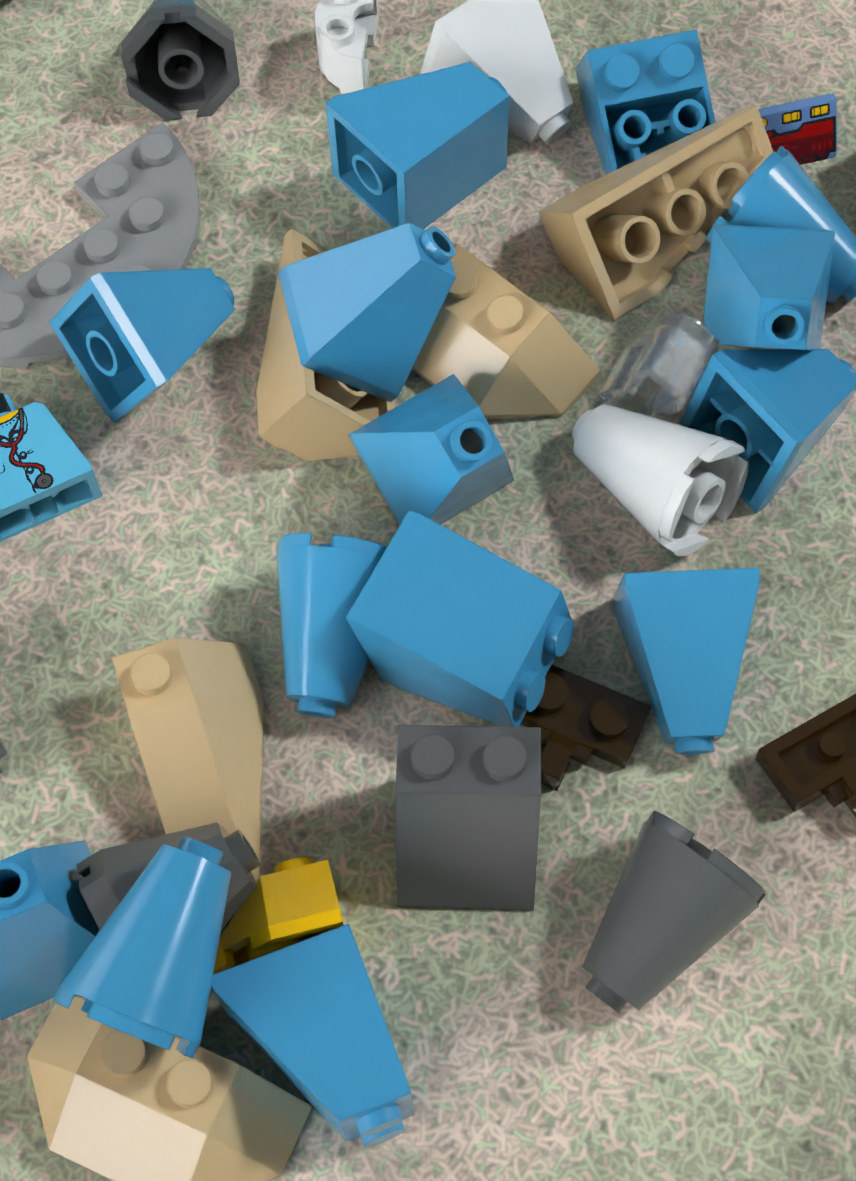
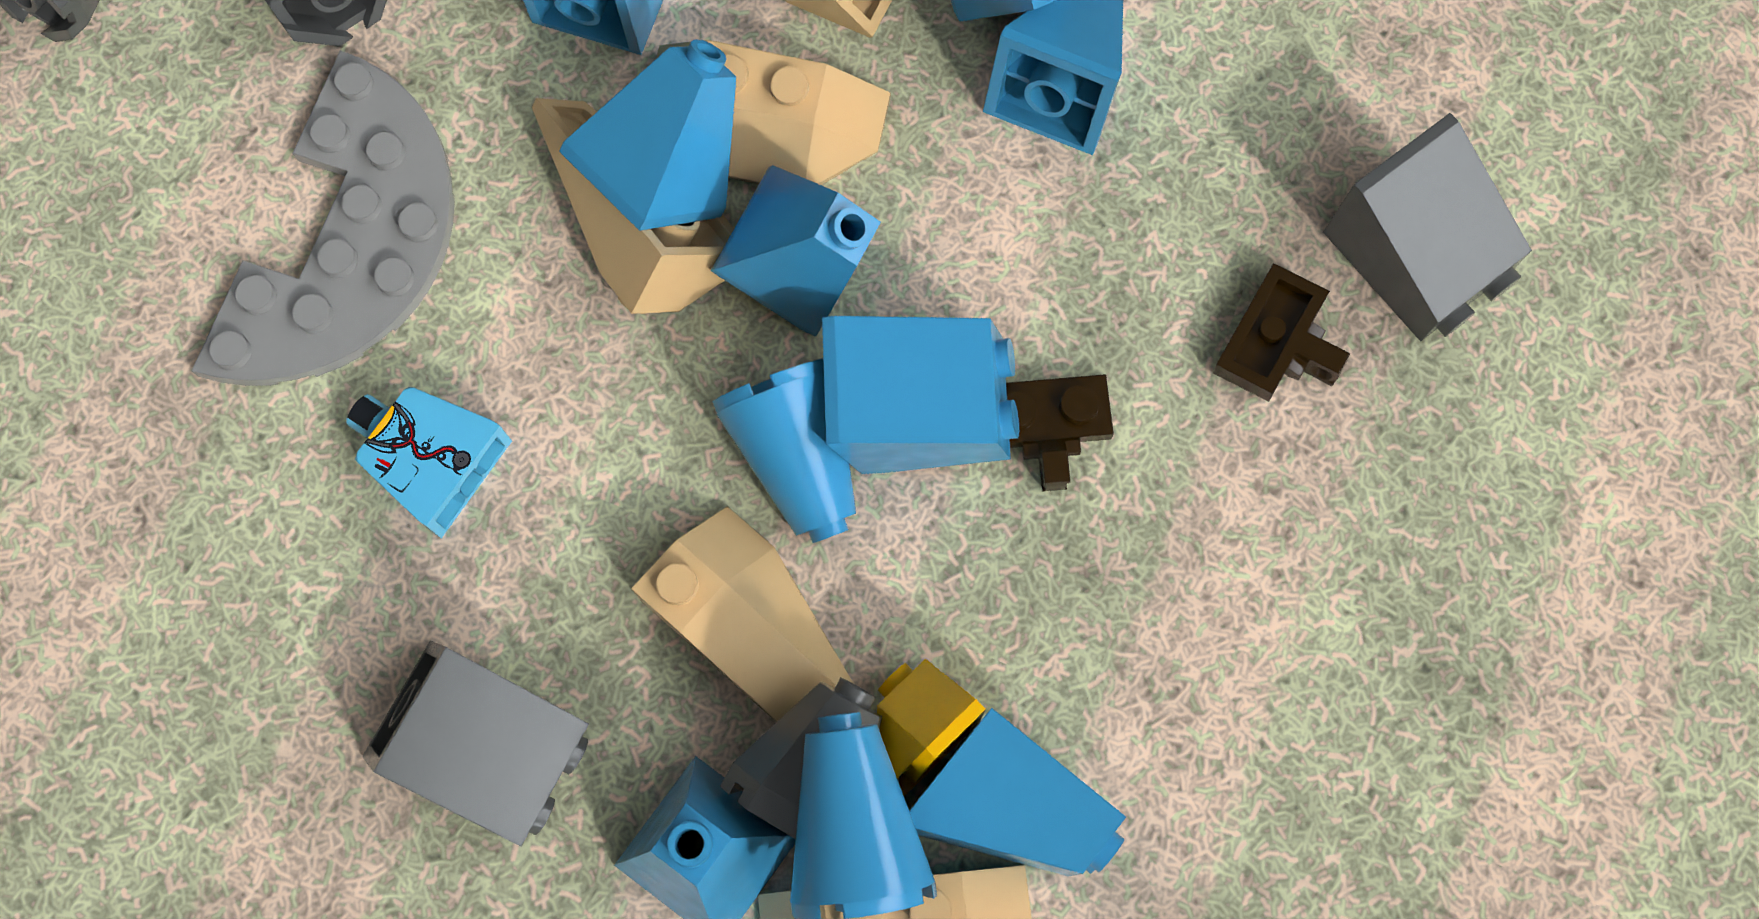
camera: 30 degrees left, 10 degrees up
(139, 329) = (463, 274): dark azure slope -> none
(467, 816) = (1022, 556): dark grey slope -> none
(660, 367) = (949, 72): clear brick -> none
(662, 472) = (997, 161): white cone -> none
(665, 913) = (1222, 547): dark grey cone -> none
(688, 646) = (1115, 310): dark azure slope -> none

